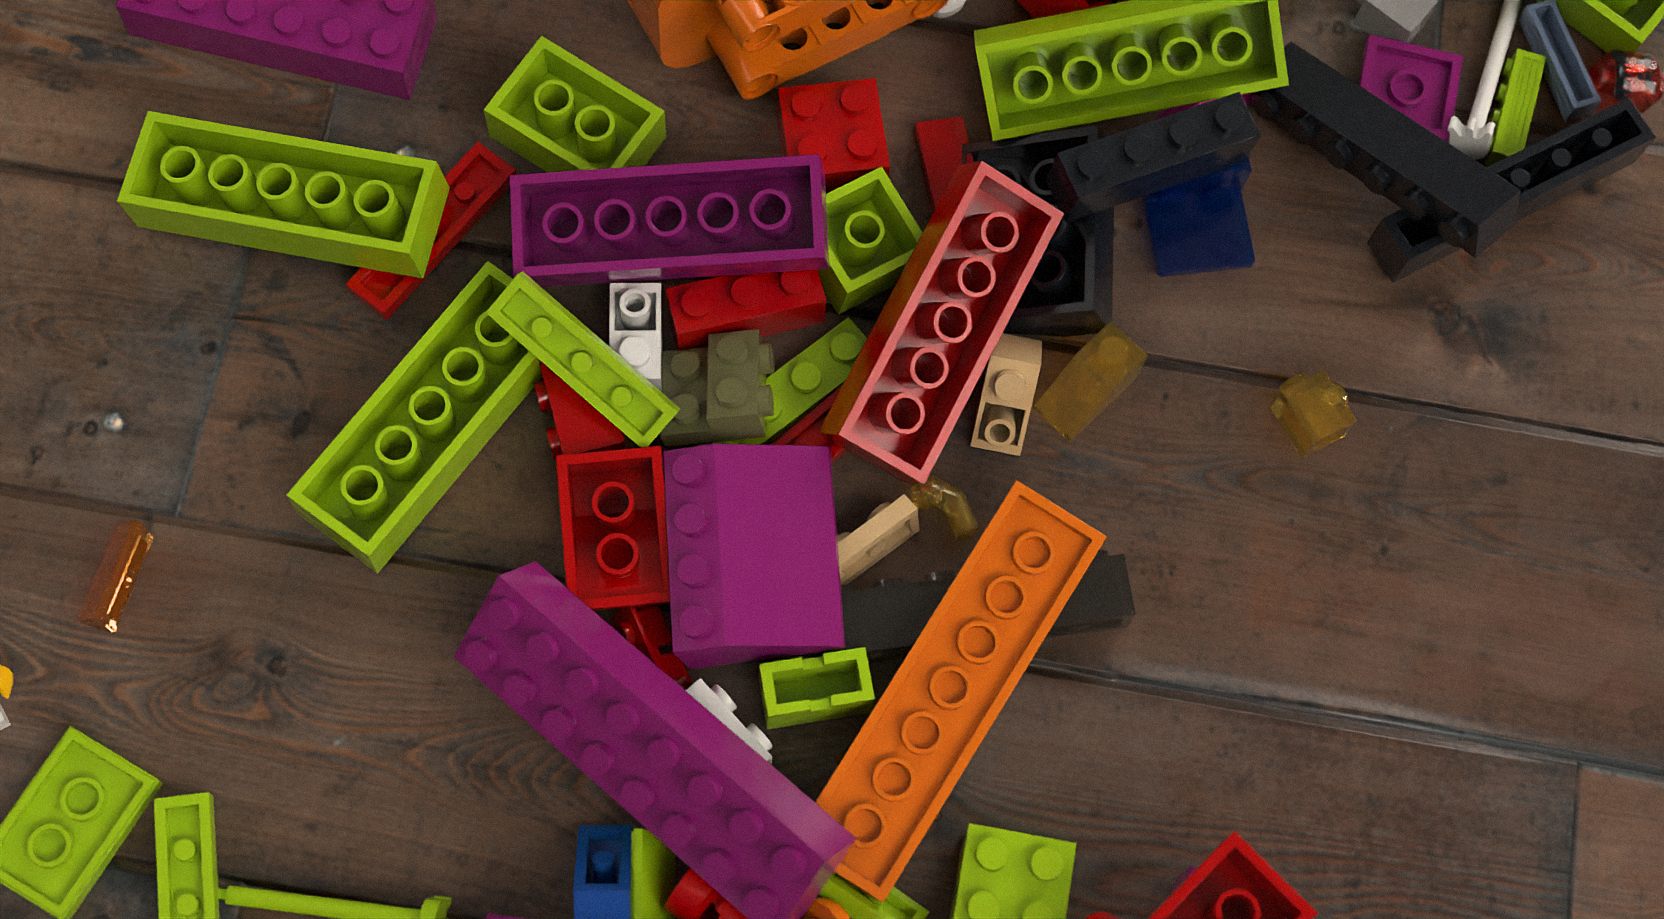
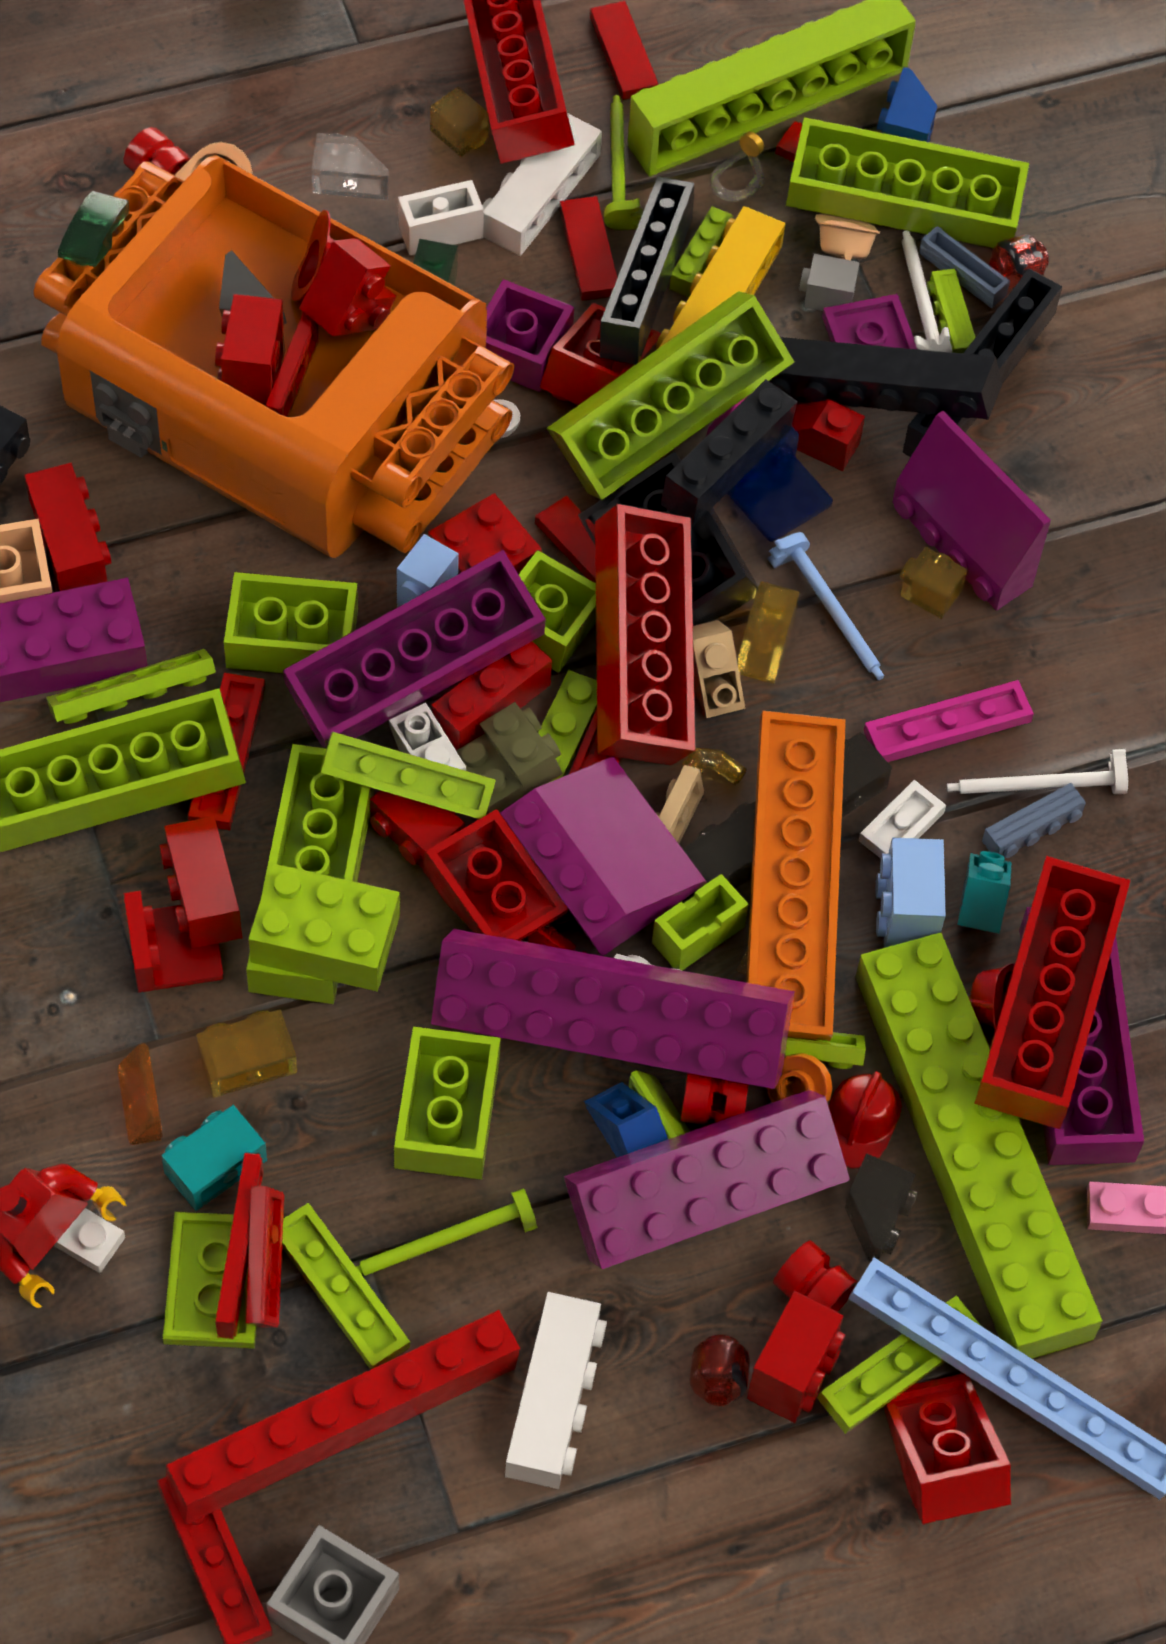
camera: 25 degrees left, 10 degrees down
(99, 808) = (238, 1250): none -> red tile
(118, 834) = (265, 1257): none -> red tile
(143, 685) = (211, 1156): none -> teal brick
(242, 418) = (163, 954): none -> red bracket
(248, 583) = (246, 1052): none -> clear yellow brick
(309, 368) = (200, 882): none -> red brick
(360, 107) = (146, 682): none -> lime plate
(385, 493) = (324, 927): none -> lime brick
(418, 756) = (447, 1103): none -> lime brick
(745, 131) = (425, 568): none -> light blue brick
(1073, 780) = (911, 890): none -> light blue brick
(1116, 680) = (904, 817): none -> white plate
(1162, 813) = (985, 892): none -> teal slope
(1179, 297) = (794, 548): none -> light blue piece
(1237, 587) = (949, 721): none -> dark pink plate
(1268, 755) = (1034, 821): none -> sand blue piece
(1291, 178) = (828, 432): none -> red slope
(1393, 749) = (1116, 777): none -> white piece
(1397, 358) = (972, 512): none -> magenta slope

